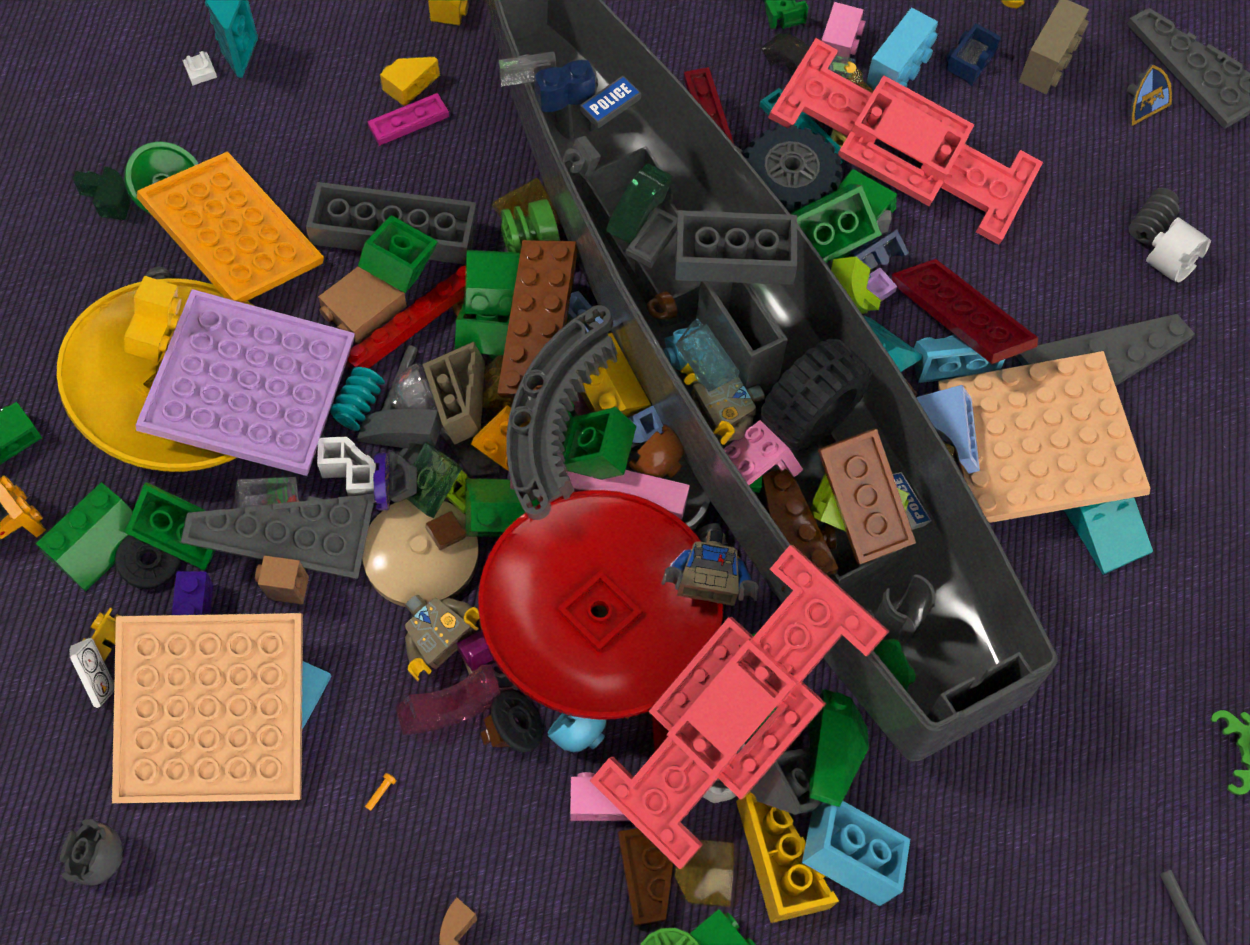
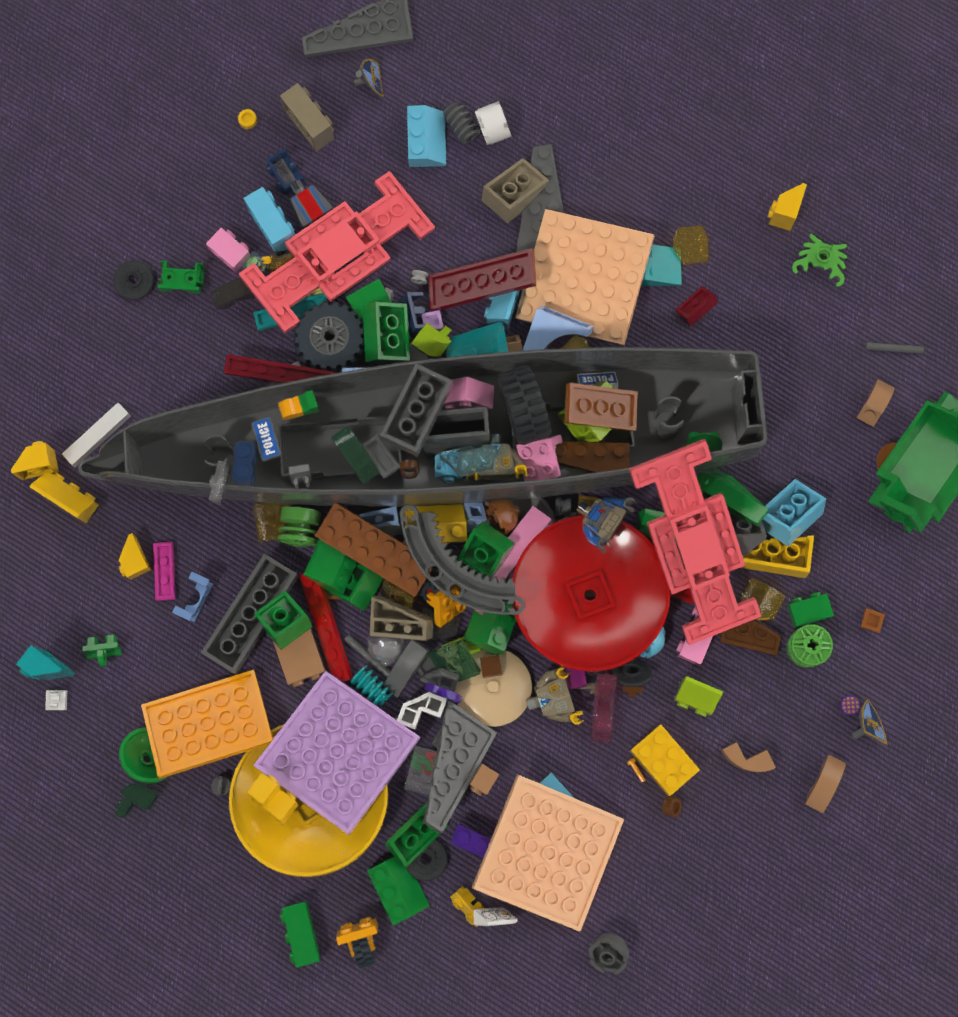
camera: 60 degrees left, 15 degrees up
(287, 95) = (102, 651): none -> green hips
(343, 863) = (671, 807): none -> reddish brown tile
(401, 165) = (192, 611): none -> medium blue piece
(407, 821) = (664, 760): none -> yellow brick
(521, 829) = (697, 696): none -> lime slope
(672, 118) = (298, 406): none -> leg
(799, 324) = (469, 394): none -> bright pink brick
(927, 248) = (419, 277): none -> light grey bush
(949, 85) = (307, 203): none -> torso
(1086, 608) = (696, 306): none -> dark red slope
(1088, 916) = (876, 403): none -> medium nougat brick
(1105, 309) = (513, 190): none -> dark tan slope
(1111, 185) = (426, 136): none -> medium azure slope
(1166, 562) = (691, 244): none -> clear yellow slope

